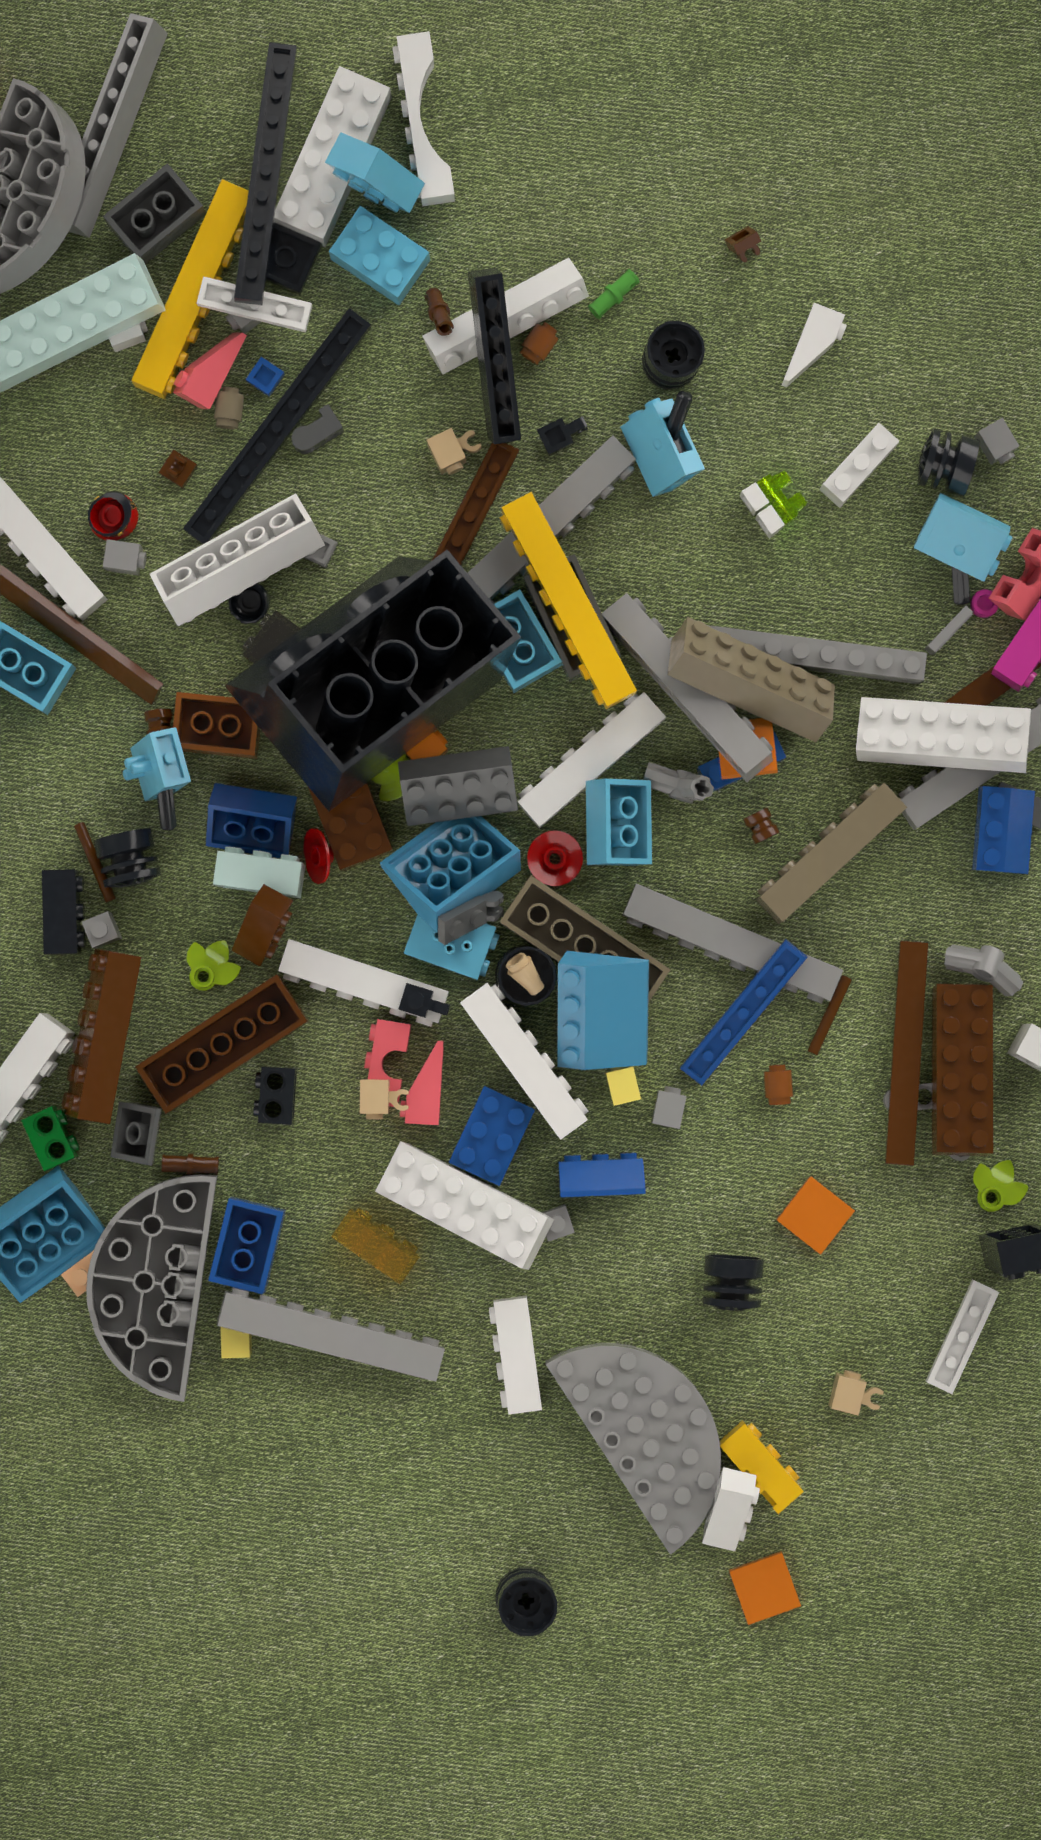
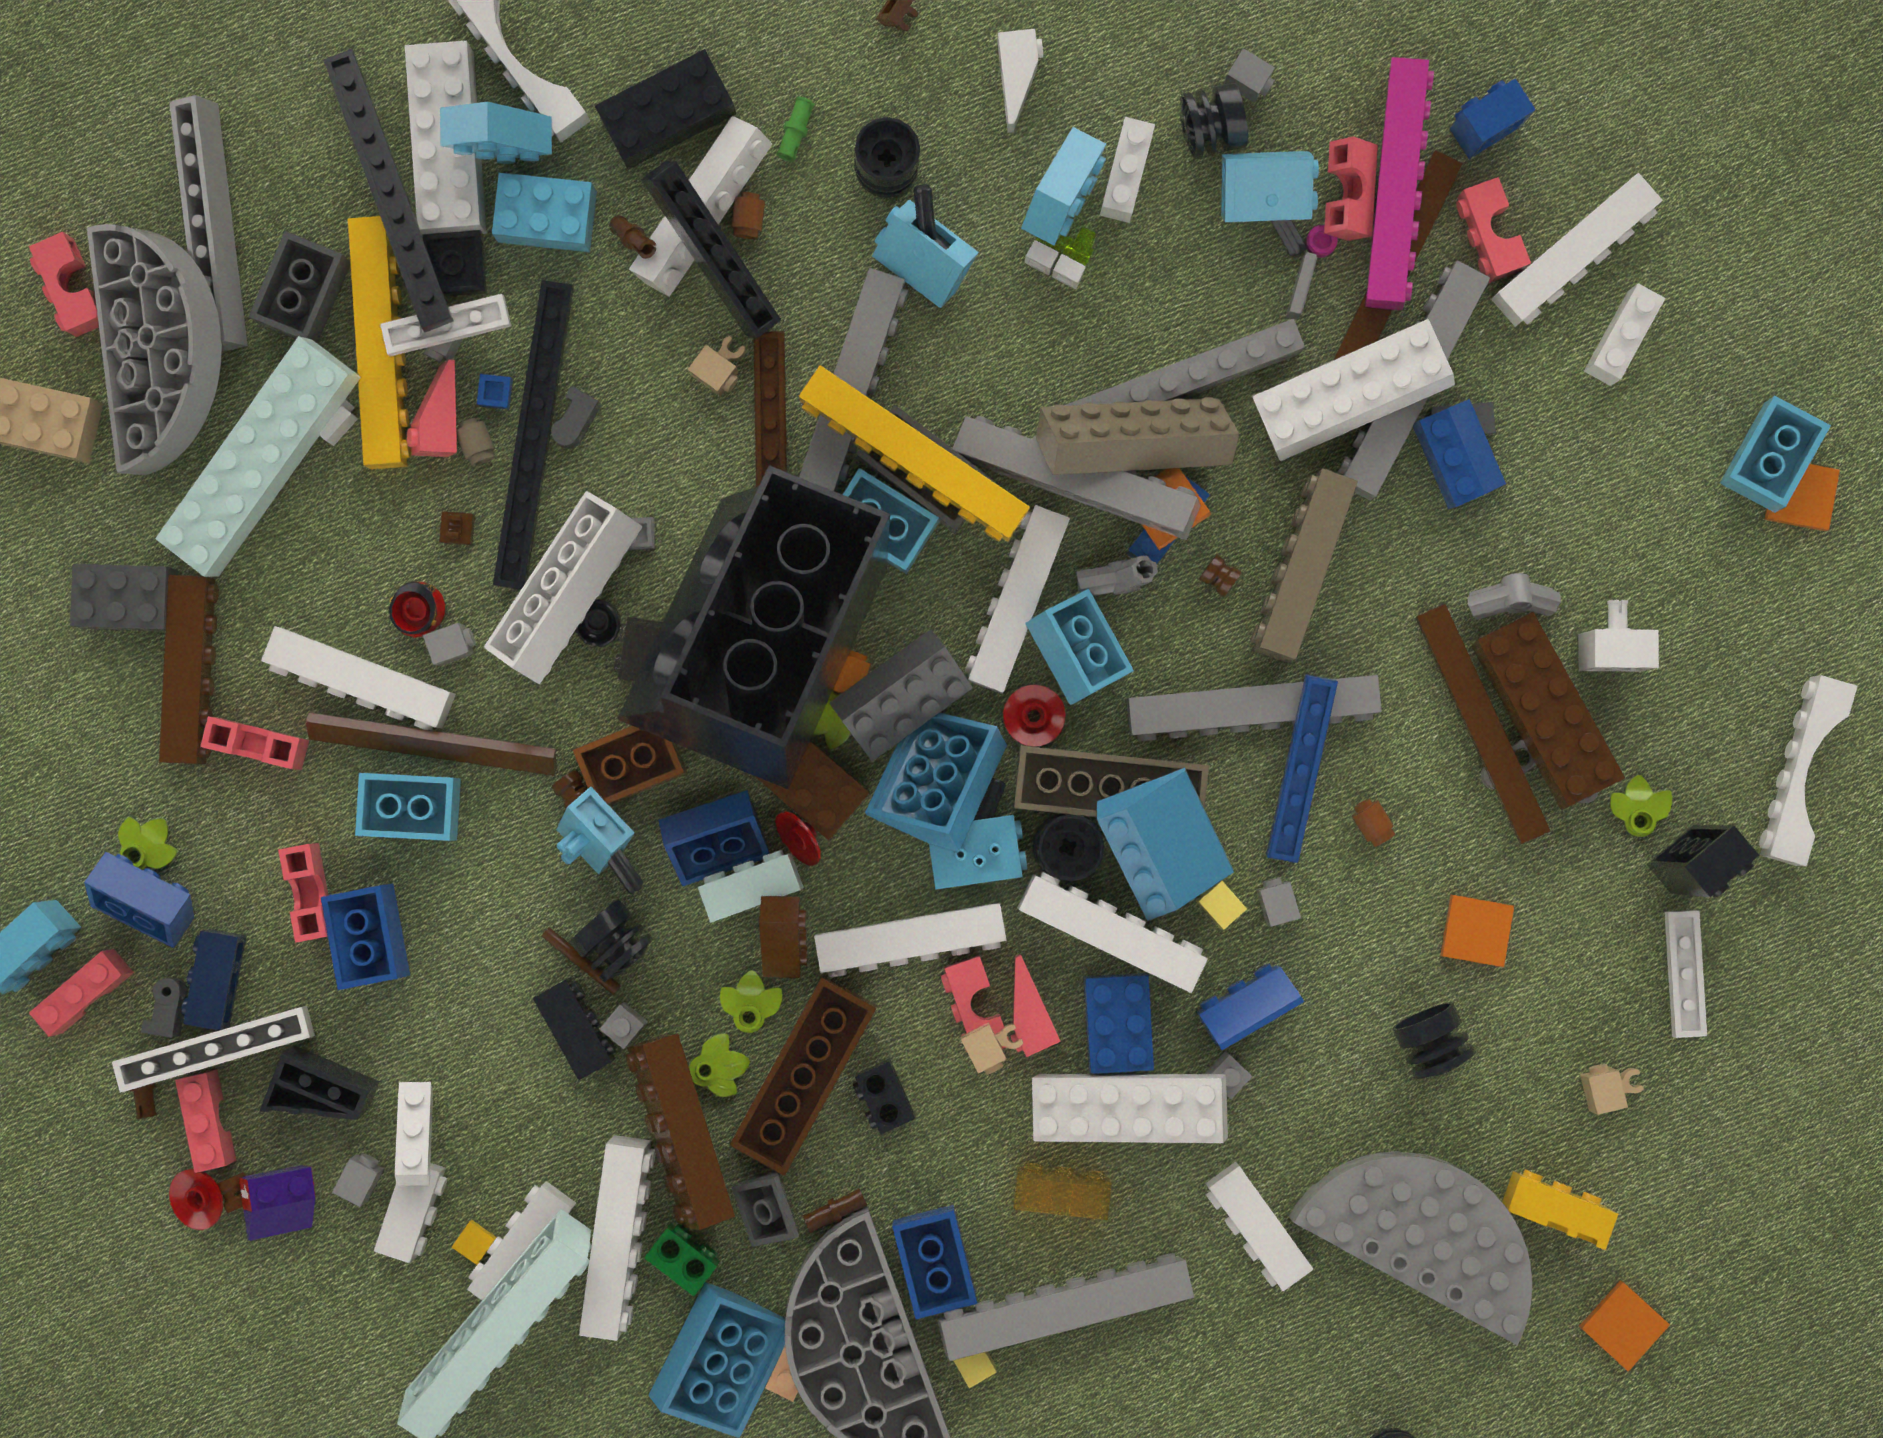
camera: 25 degrees left, 0 degrees up
(162, 1004) = (723, 1066): none -> lime plate
(419, 1000) = (976, 928): black plate -> none
(470, 916) = (982, 818): dark grey hinge -> none
(519, 224) = (666, 109): none -> black brick
(524, 972) = (1065, 845): tan cone -> none
(557, 435) = (815, 297): black plate -> none
(730, 1509) = (1553, 1268): white brick -> none
(800, 453) = (1064, 185): none -> medium azure brick
(829, 1015) = (1386, 730): reddish brown bar -> none

